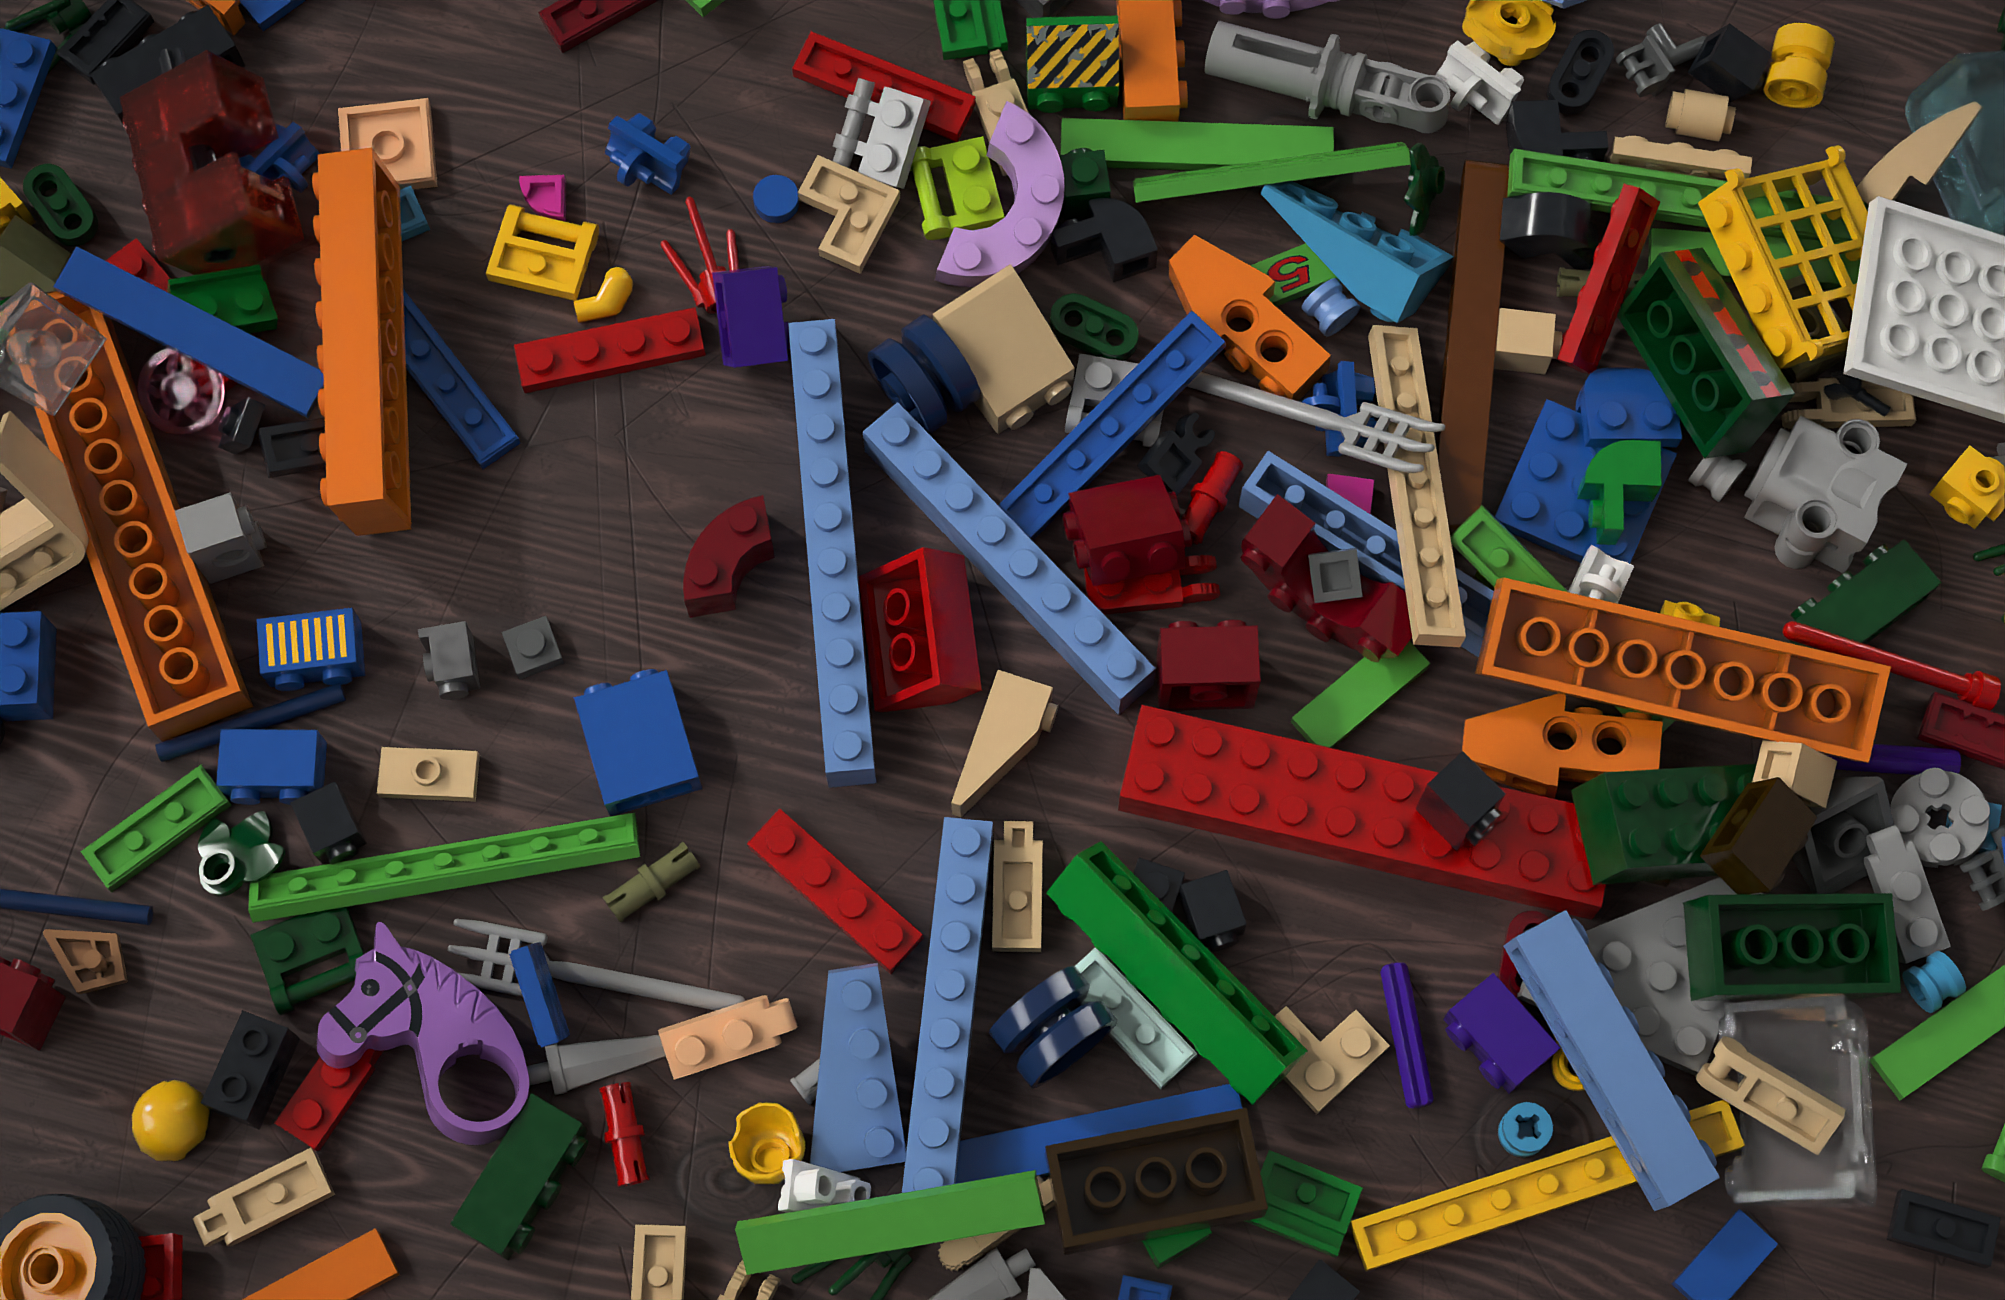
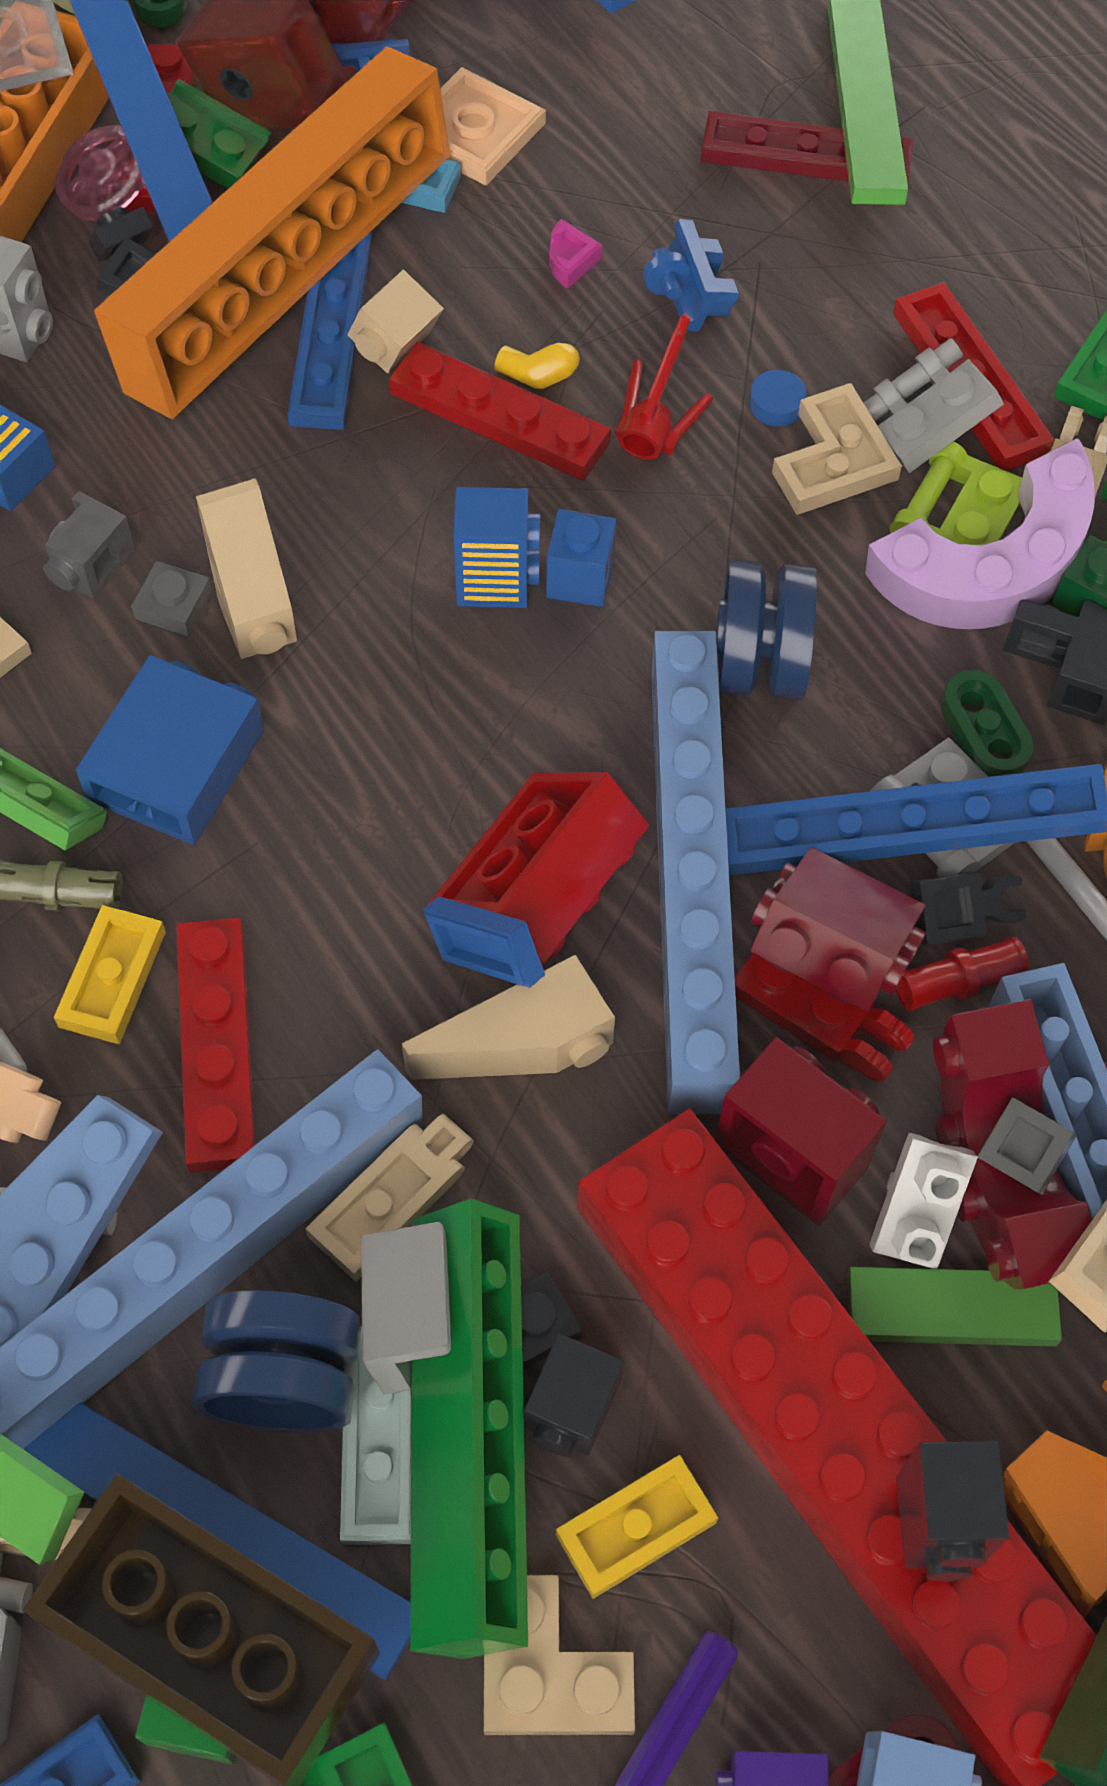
camera: 40 degrees right, 10 degrees down
(491, 344) = (394, 321): none -> tan brick
(538, 264) = (508, 299): yellow plate -> none
(588, 598) = (246, 569): none -> tan slope
(712, 453) = (495, 547): none -> blue brick
(724, 555) = (420, 650): dark red brick -> none
(739, 904) = (110, 974): none -> yellow plate
(751, 316) = (649, 460): dark purple brick -> none
(764, 414) = (580, 557): none -> blue brick
(831, 554) = (514, 734): medium blue brick -> none
(940, 705) = (484, 941): none -> blue tile
(1007, 349) = (871, 667): tan slope -> none
(1090, 936) = (404, 1301): none -> light grey panel
(1302, 650) = (922, 1201): none -> white hips
(1302, 947) = (636, 1526): none -> yellow plate

